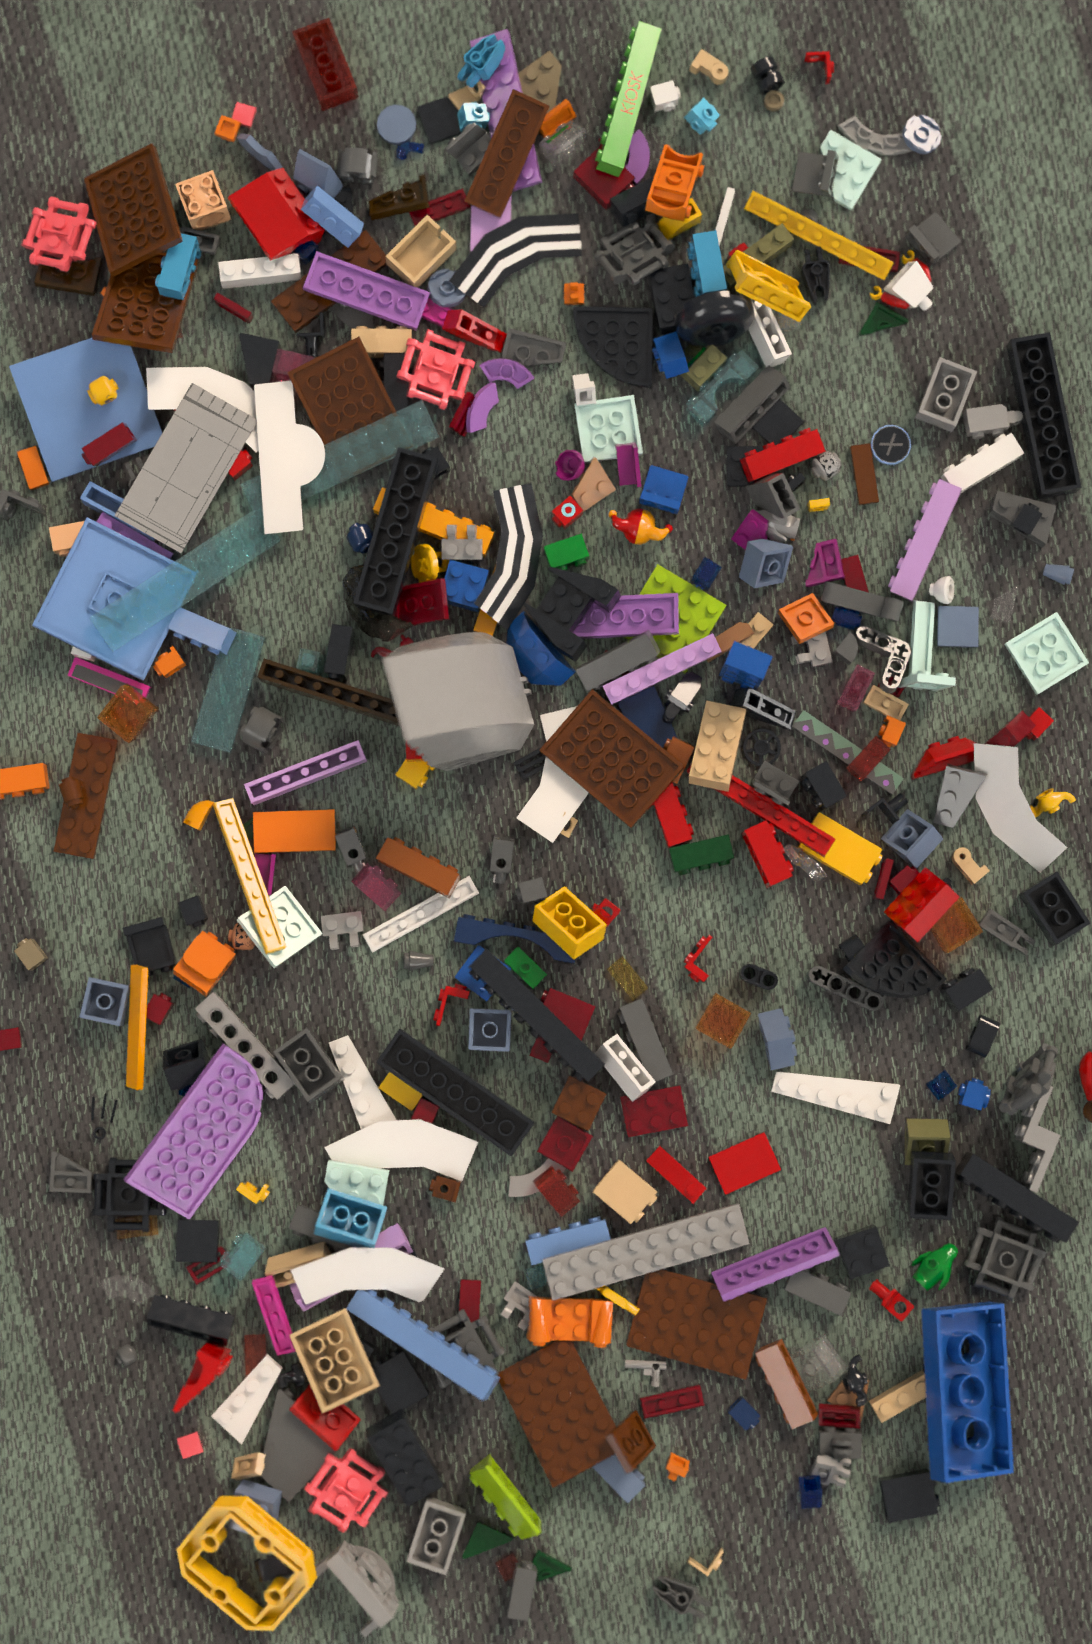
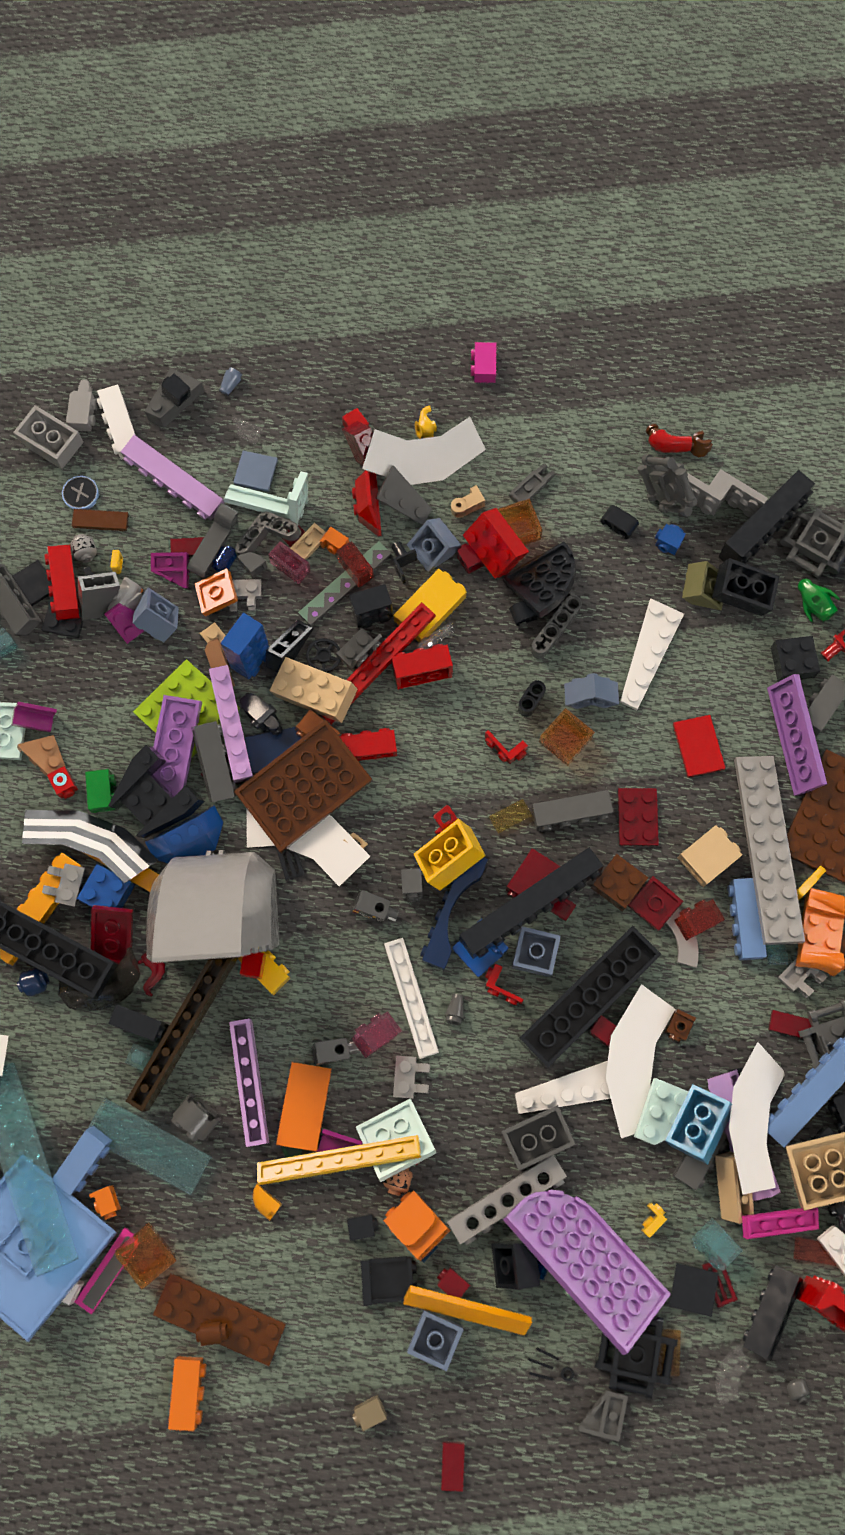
camera: 75 degrees left, 10 degrees down
(400, 1091) = (578, 1051): yellow tile -> none
(418, 867) = (366, 989): dark orange brick -> none
(425, 563) = (74, 922): yellow tile -> none
(525, 967) = (482, 907): green plate -> none
(573, 462) = (18, 770): magenta hair -> none
(625, 1068) = (595, 831): white brick -> none
(639, 526) = (93, 720): piece -> none
(663, 489) = (66, 692): blue bracket -> none
(676, 1174) = (701, 807): red slope -> none
(701, 854) = (410, 726): dark green brick -> none
(706, 574) = (153, 670): clear blue brick -> none
(883, 879) = (465, 575): dark red tile -> none
(941, 1085) = (656, 565): clear blue slope -> none
(943, 589) = (220, 475): white brick -> none
(966, 989) = (577, 524): black brick -> none
(1044, 416) = (96, 362): black brick -> none
(1046, 653) = (296, 405): light aqua plate -> none
(1054, 908) = (520, 441): black brick -> none

